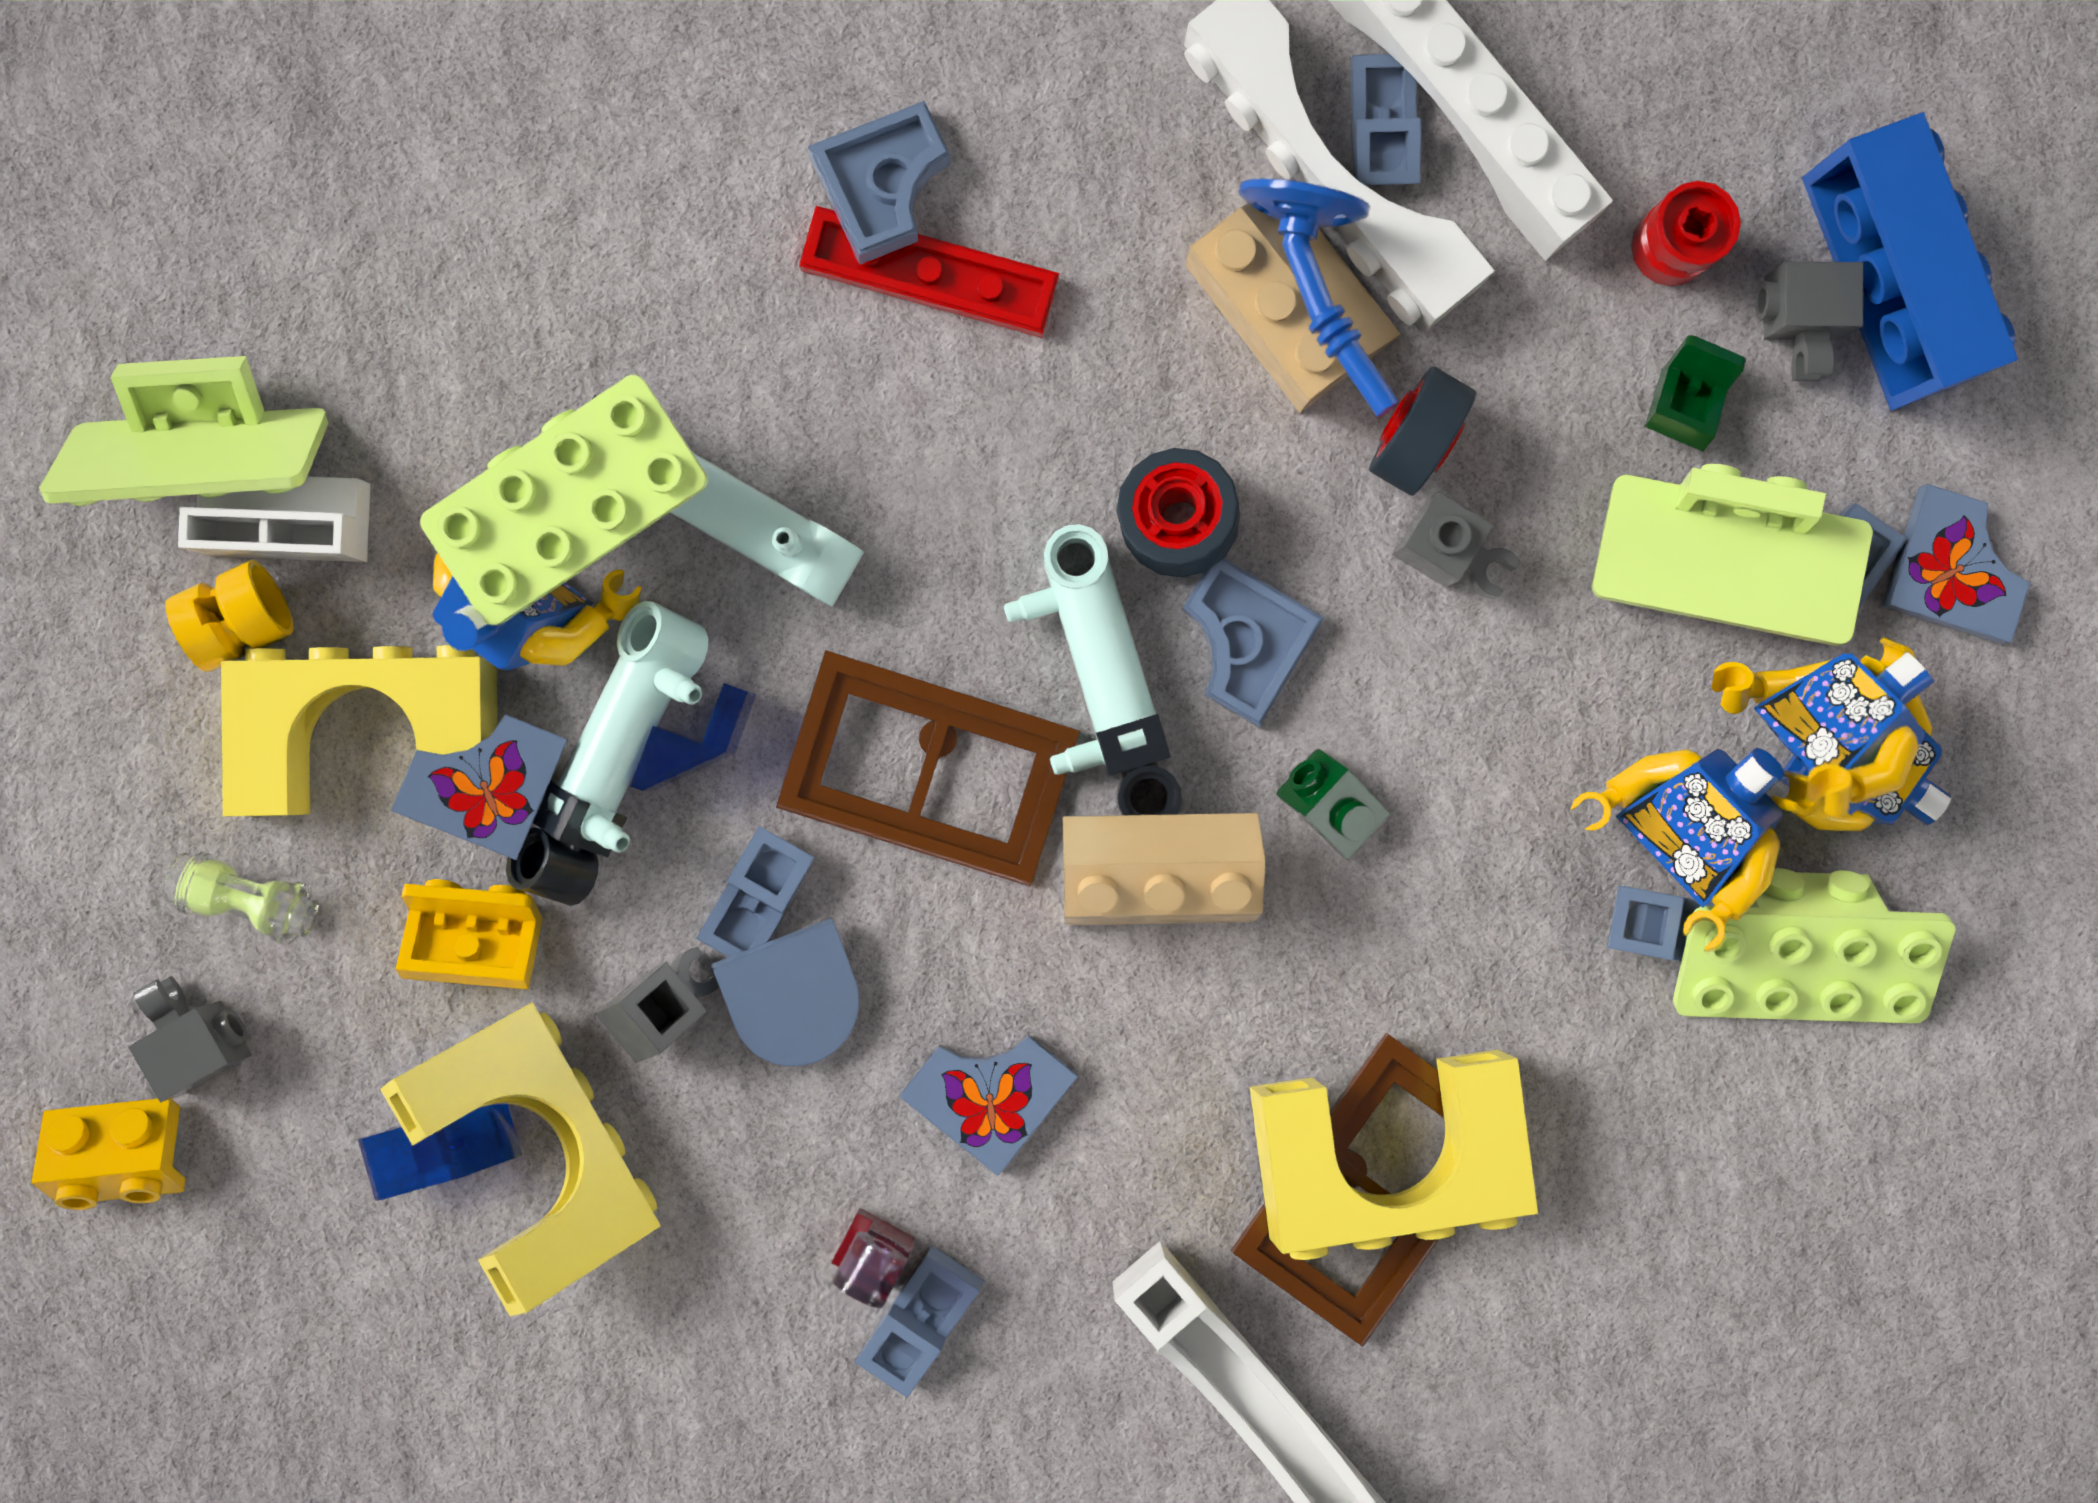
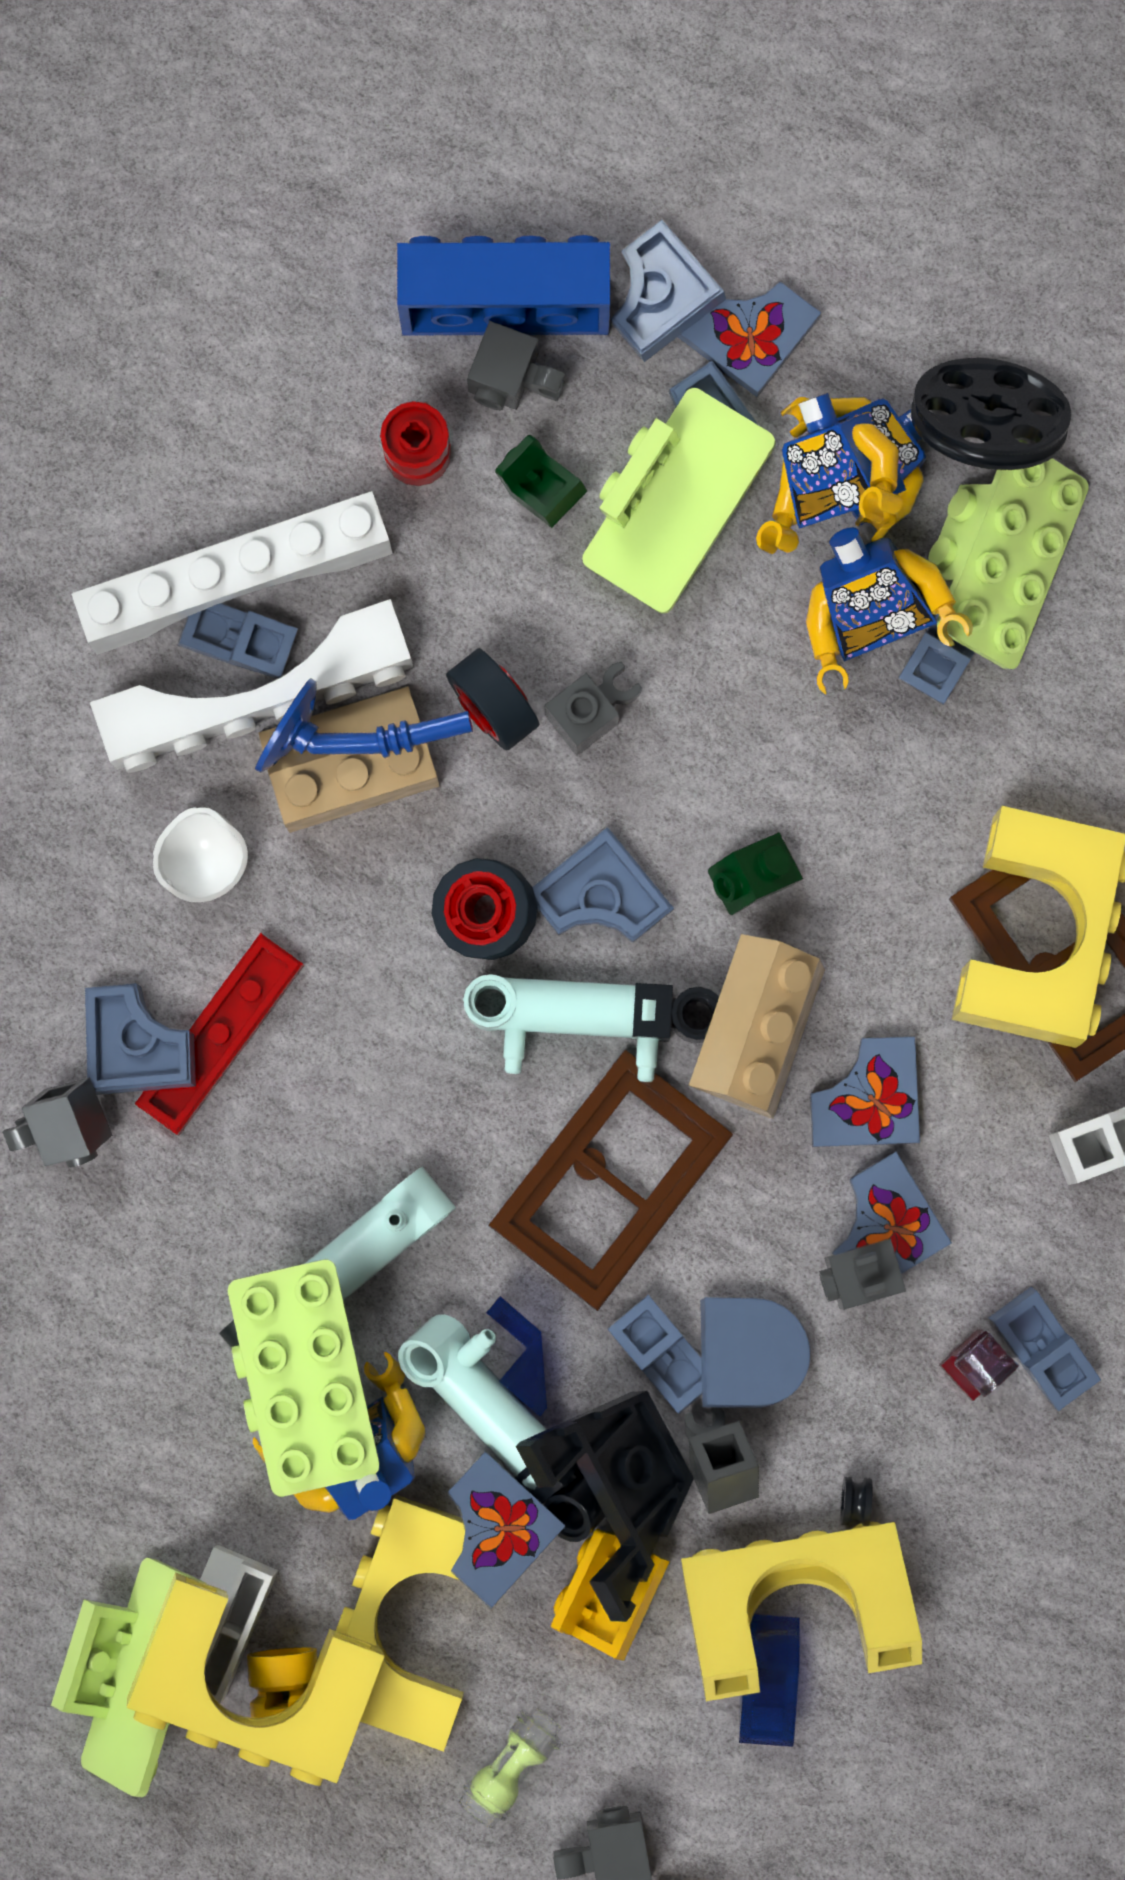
camera: 70 degrees left, 5 degrees down
(165, 652) = (307, 1736): none -> light yellow arch
(603, 912) = (633, 1476): none -> black wing
(671, 1173) = (856, 1501): none -> black bush
(760, 131) = (63, 1124): none -> dark grey brick
(922, 1091) = (862, 1275): none -> dark grey brick
(1118, 169) = (199, 856): none -> white helmet
(1127, 1031) = (874, 1101): none -> sand blue tile
(1968, 456) = (665, 291): none -> tile
(1971, 879) = (990, 413): none -> black wedge

